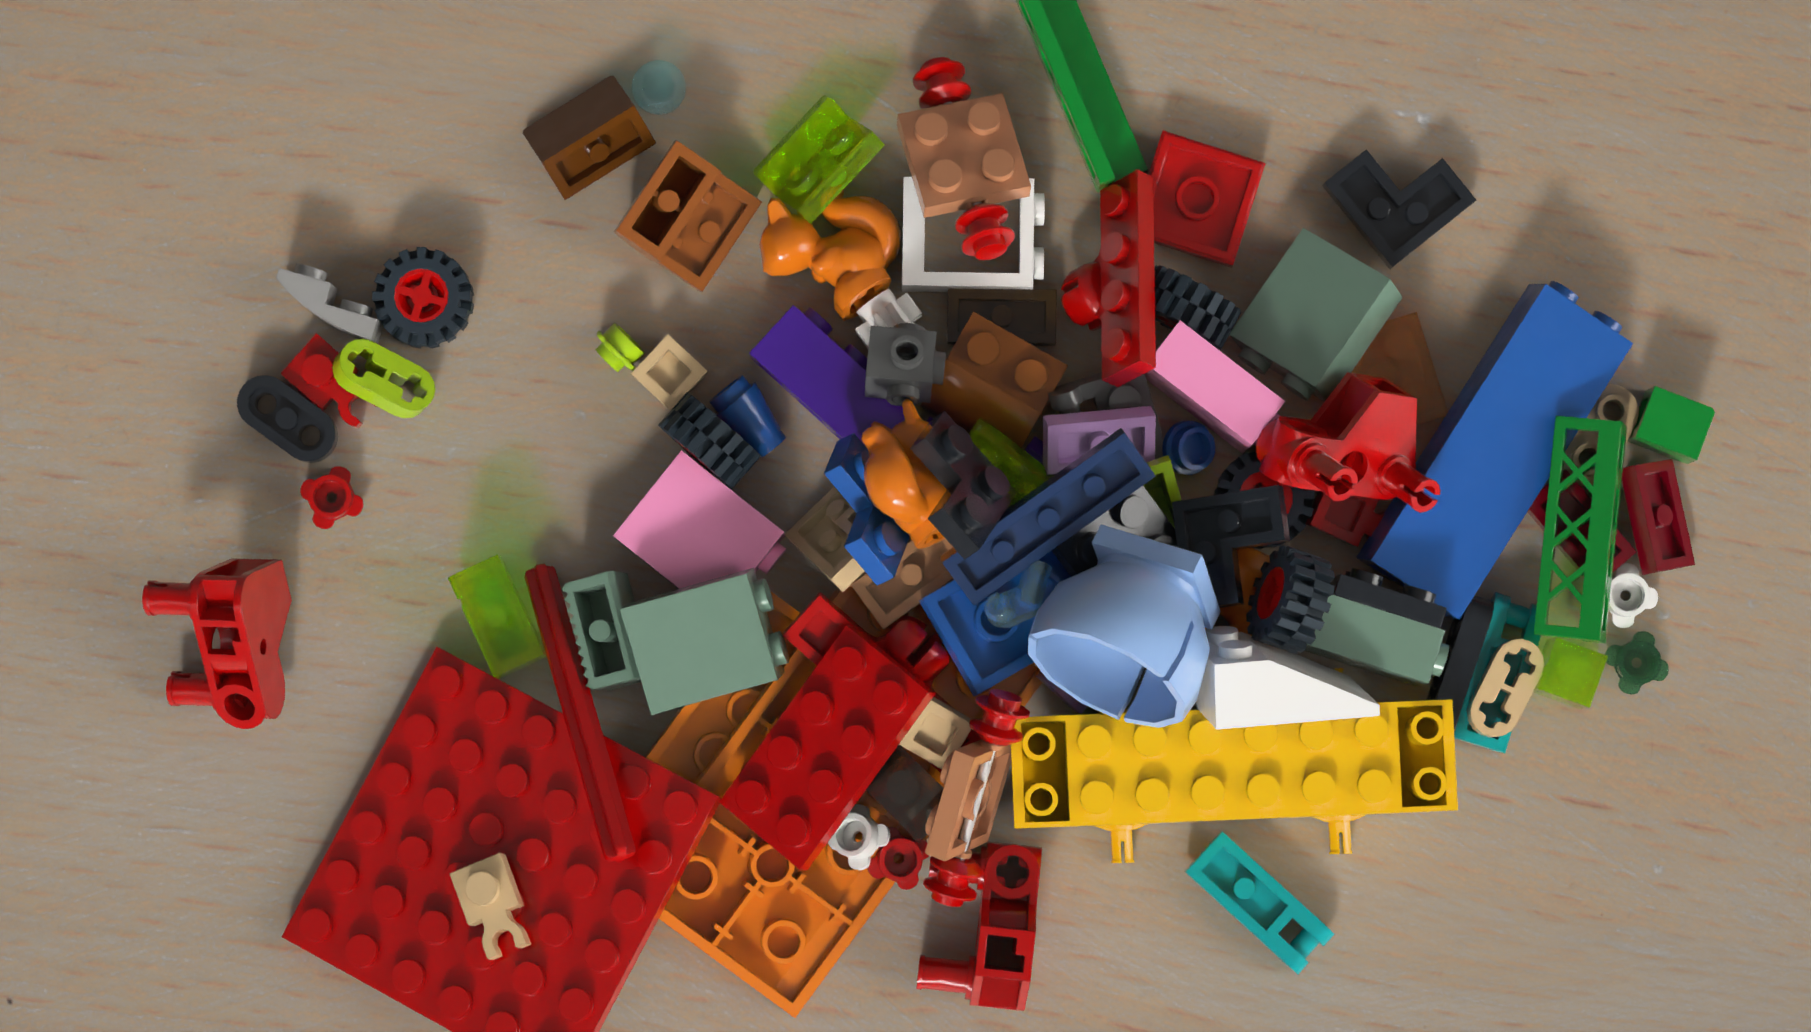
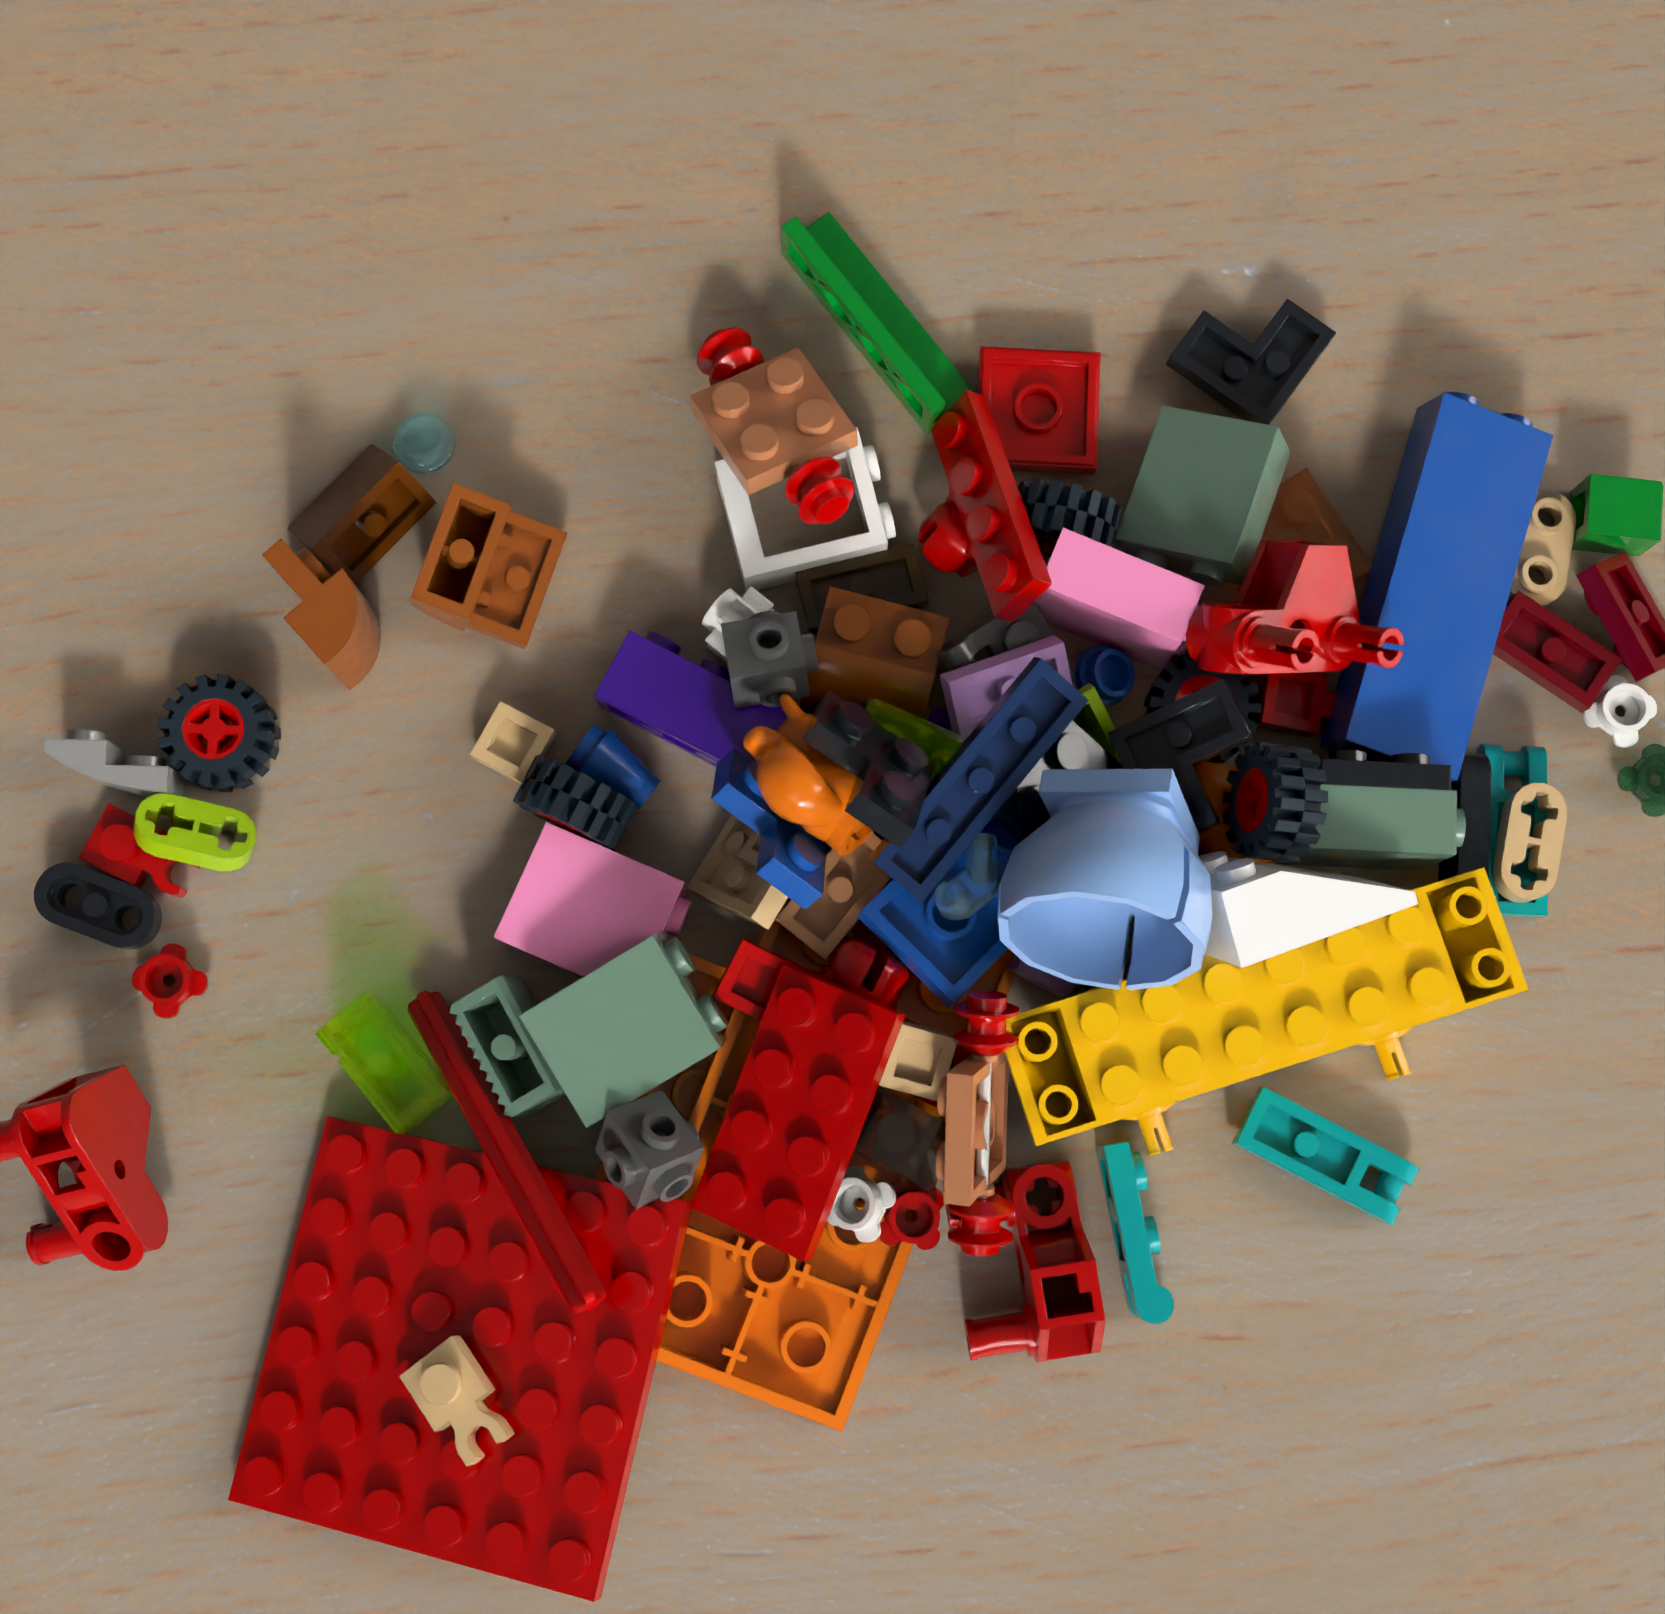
camera: 15 degrees left, 5 degrees down
(550, 230) = (332, 616): none -> dark orange brick
(618, 348) = (450, 732): lime plate -> none
(698, 746) = (649, 1150): none -> dark grey brick
(817, 159) = (615, 471): clear neon green bracket -> none
(848, 260) = (678, 569): orange animal -> none
(1080, 923) = (1133, 1234): none -> teal plate
(1570, 673) = (1596, 807): clear neon green brick -> none
(1601, 534) = (1584, 641): green fence -> none

